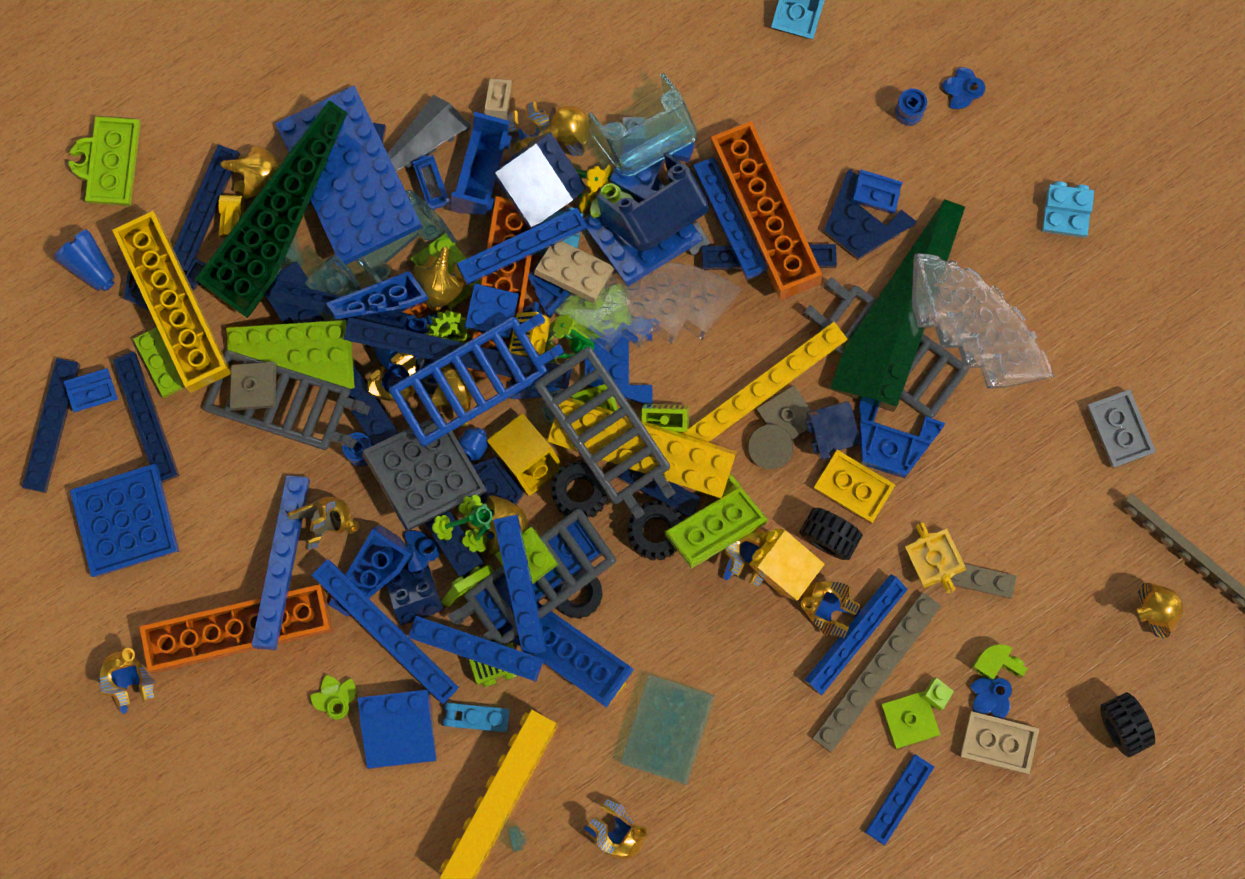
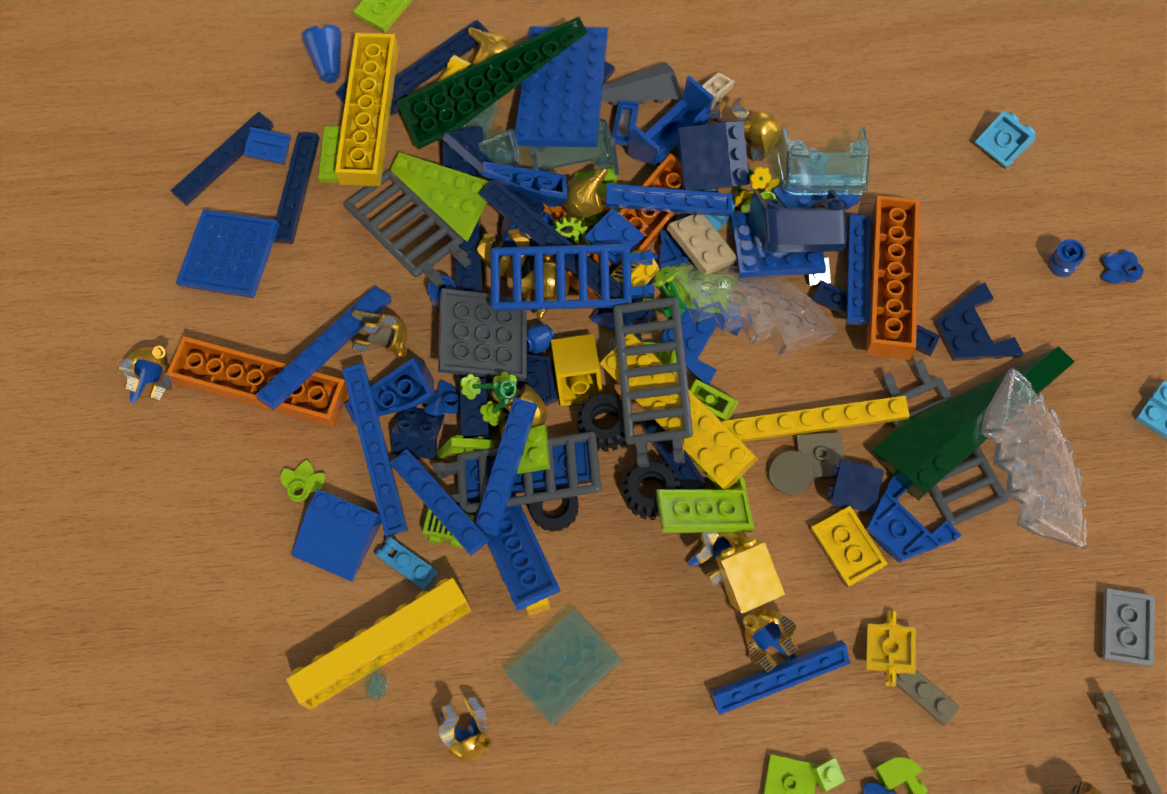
camera: 30 degrees right, 10 degrees down
(253, 386) = (390, 202): dark tan plate -> none
(831, 533) = (805, 573): black tyre -> none
(876, 191) = (1000, 311): blue plate -> none
(876, 672) = (781, 723): dark tan plate -> none

